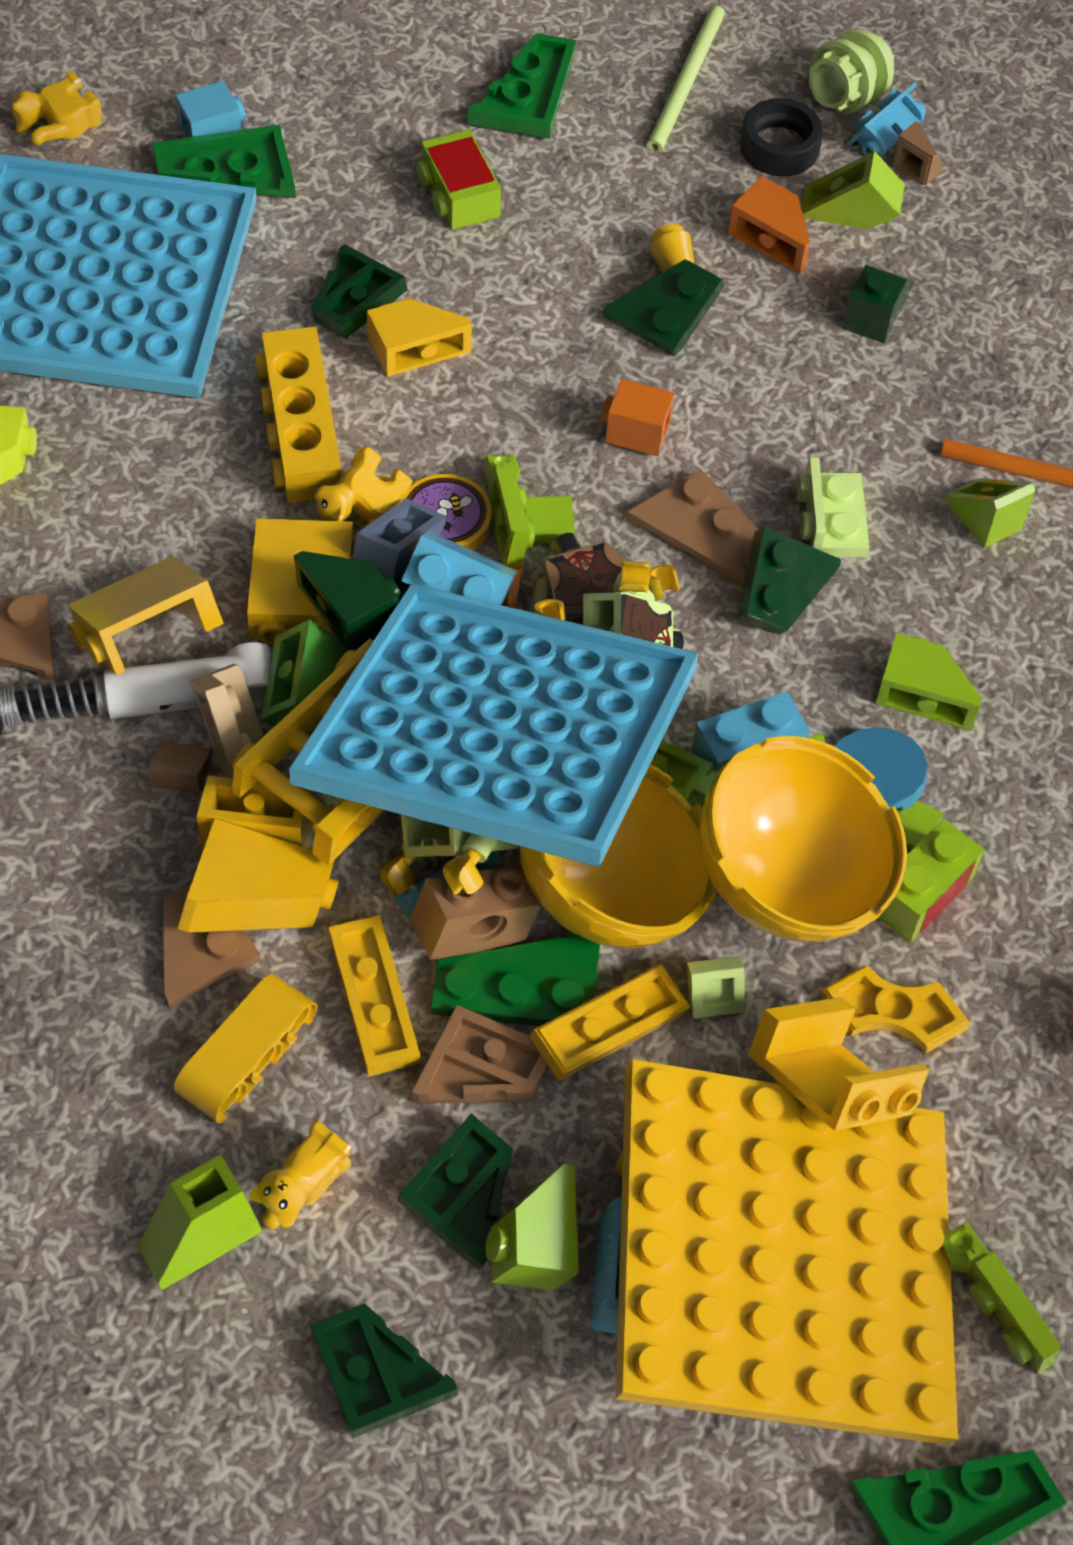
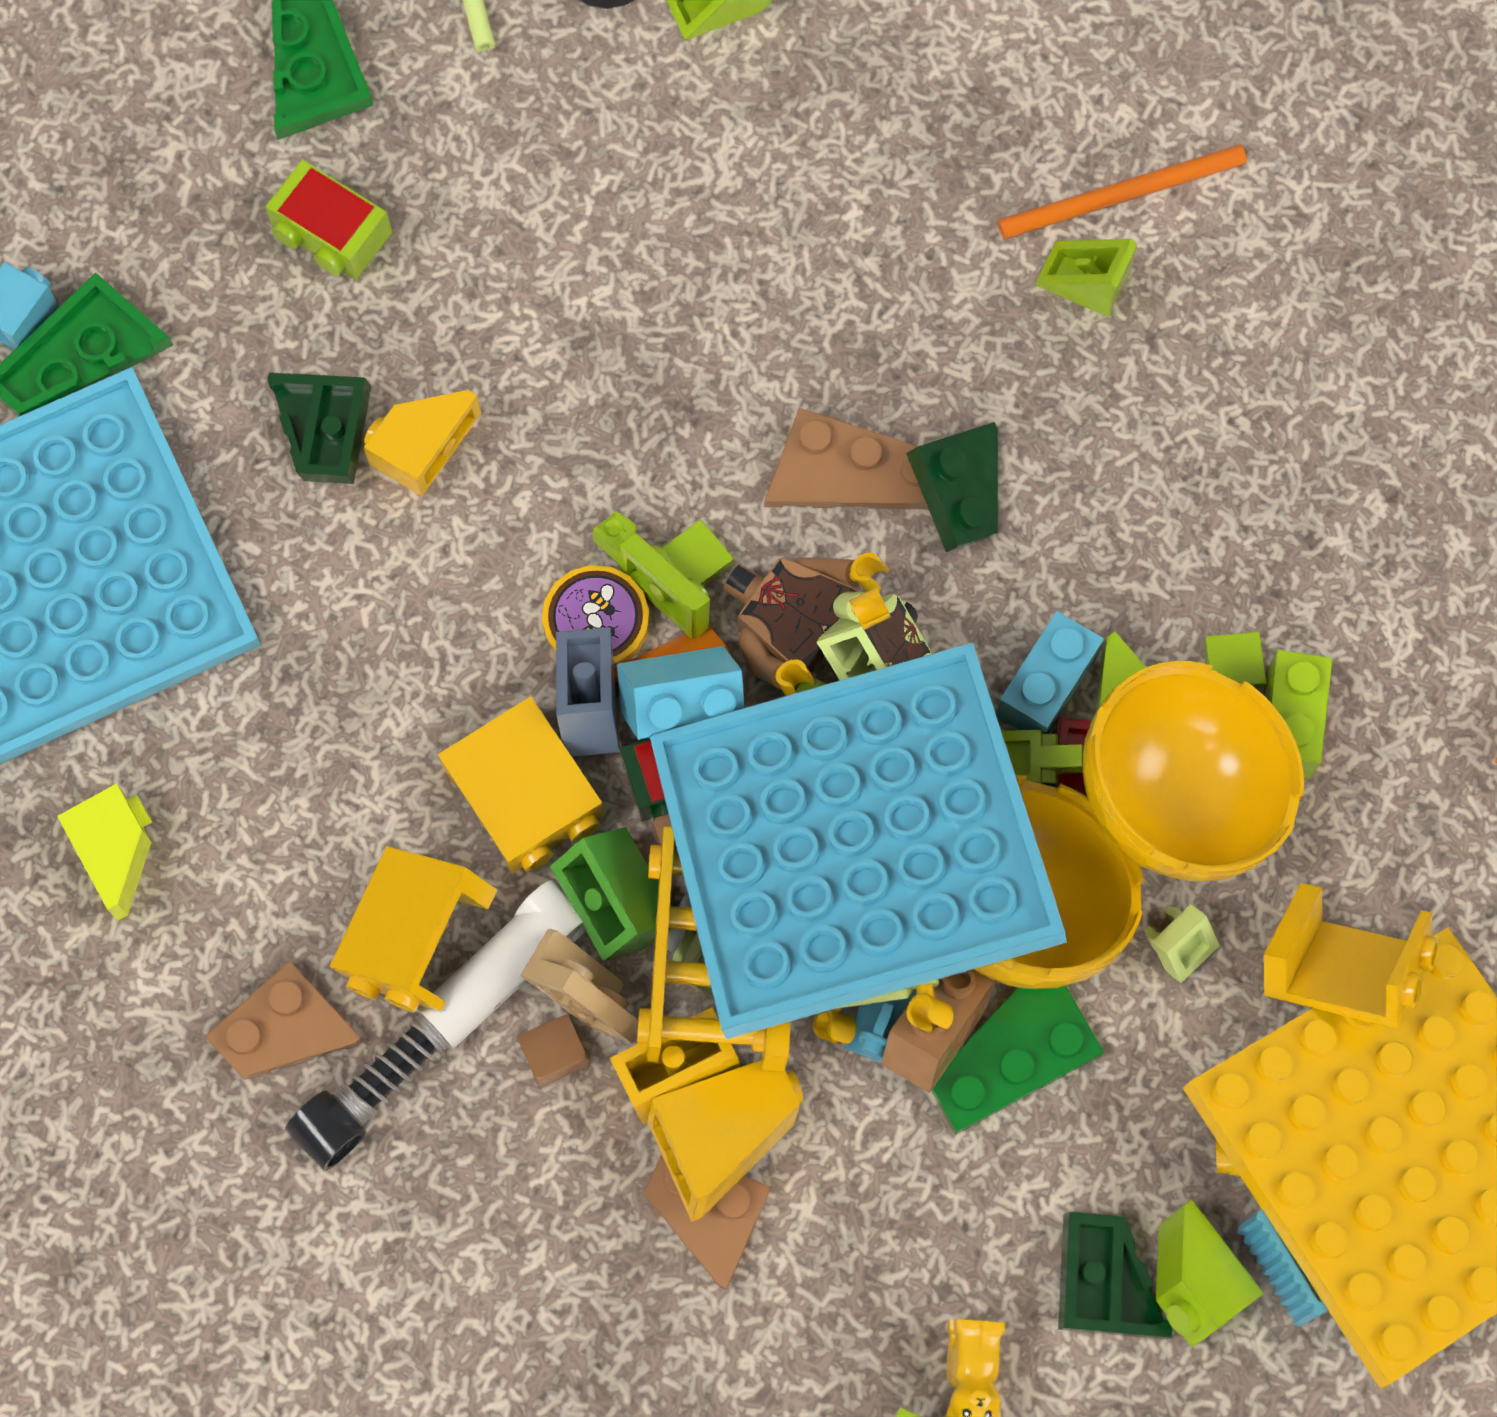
camera: 30 degrees left, 15 degrees up
(243, 1046) = (829, 1284): yellow beam -> none
(300, 411) = (331, 538): yellow brick -> none
(347, 595) = (600, 787): dark green slope -> none
(362, 490) = (511, 648): yellow animal -> none
(374, 996) = (899, 1155): yellow plate -> none
(480, 1063) = (1038, 1153): medium nougat wing -> none
(609, 1022) = (1120, 1040): yellow tile -> none
(638, 417) = (706, 392): orange brick -> none
(667, 306) = (640, 240): dark green wing -> none
(670, 246) = (604, 175): yellow cone -> none
(772, 223) = (674, 73): orange slope -> none
(834, 512) = (953, 372): yellowish green bracket -> none
(876, 302) = (834, 98): dark green slope -> none
(893, 760) = (1176, 622): dark azure tile -> none
(918, 1013) = (1367, 844): yellow tile -> none
(928, 683) = (1159, 506): lime slope -> none

